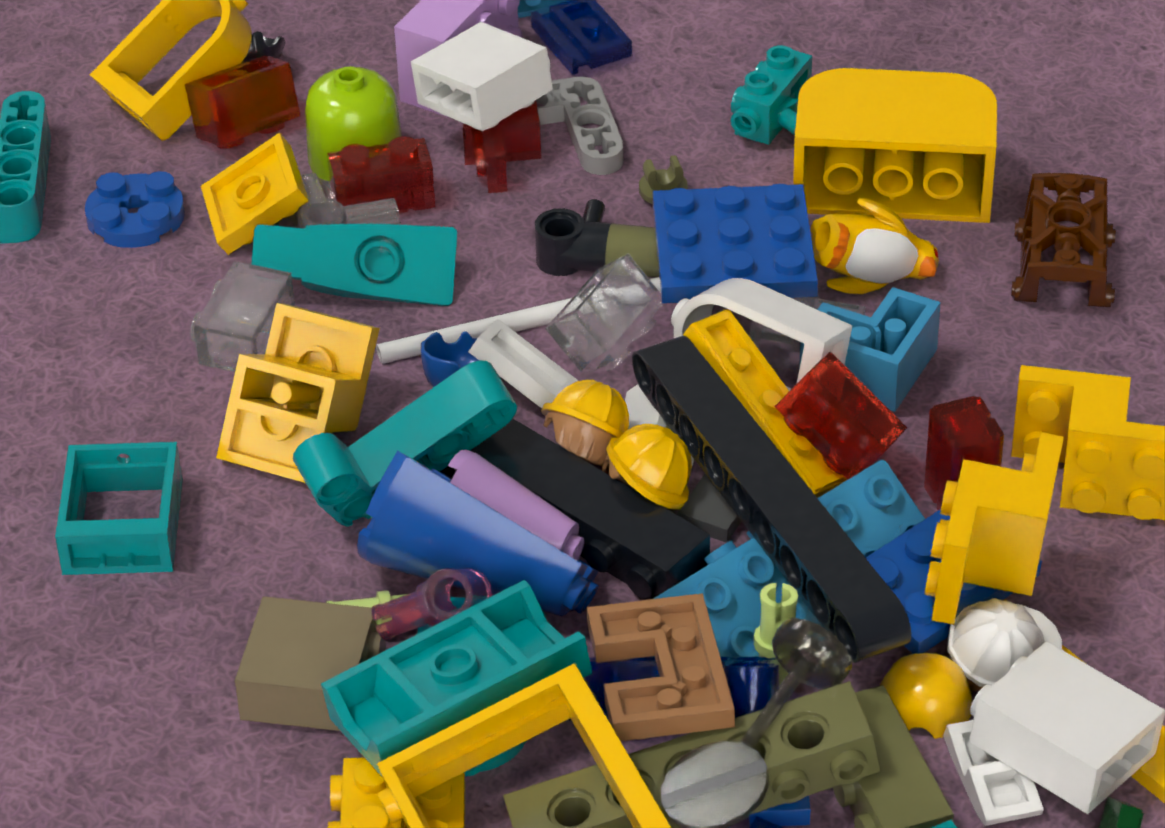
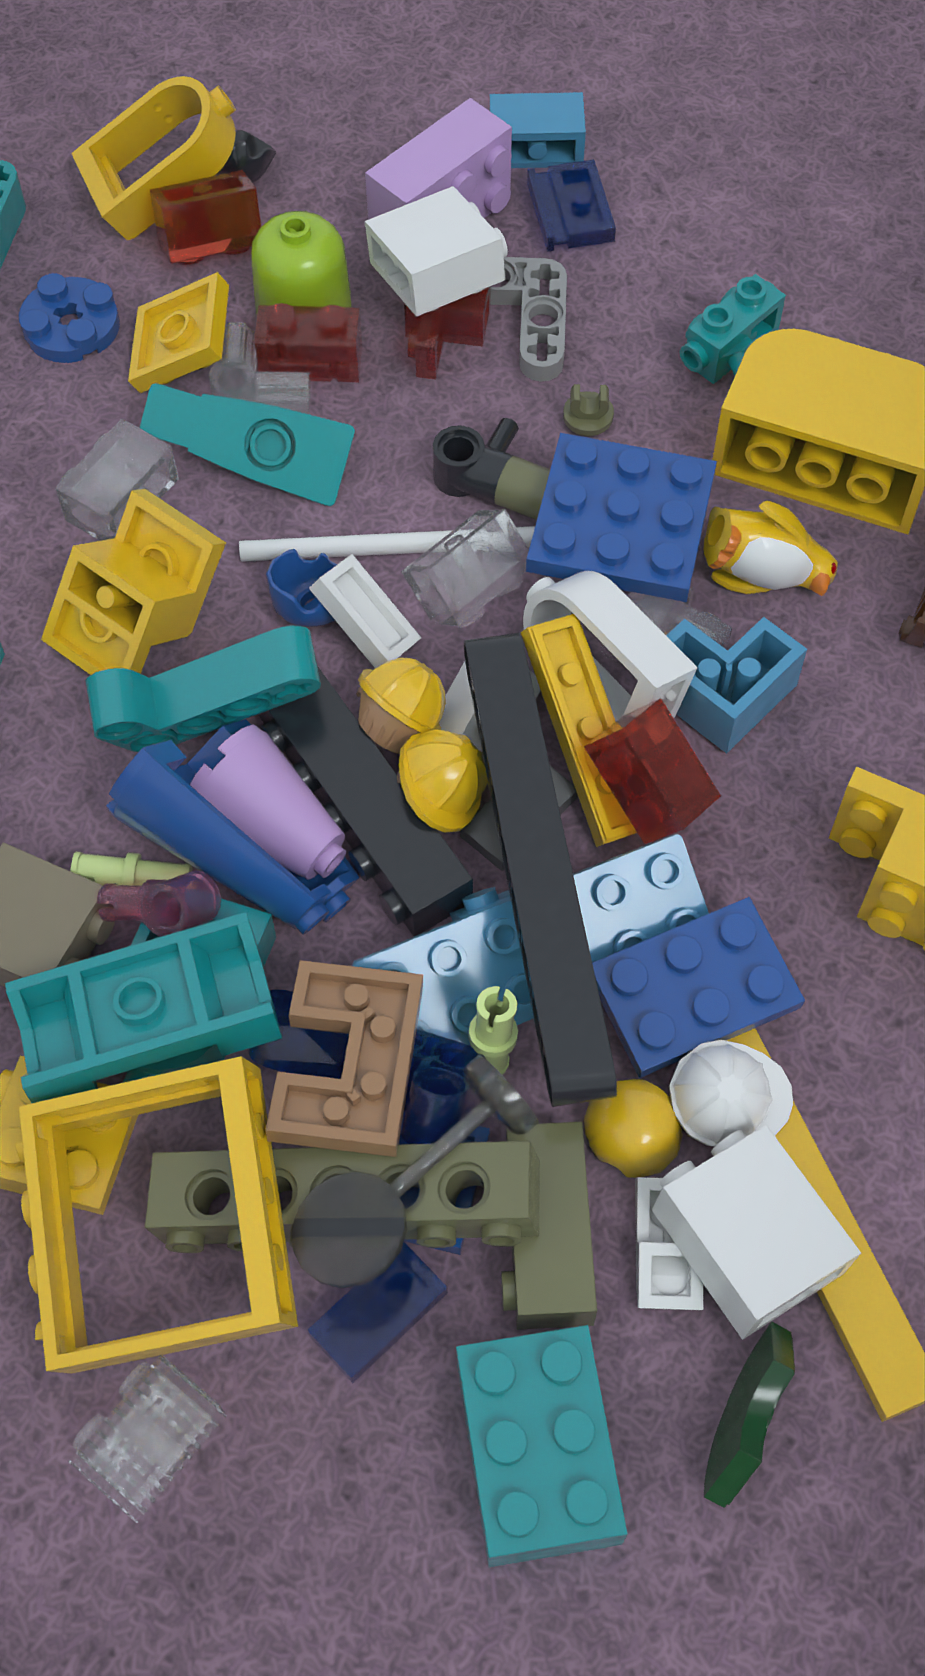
camera: 15 degrees right, 20 degrees up
(956, 433) = (766, 850): clear red brick -> none
(992, 528) = (752, 976): yellow bracket -> none

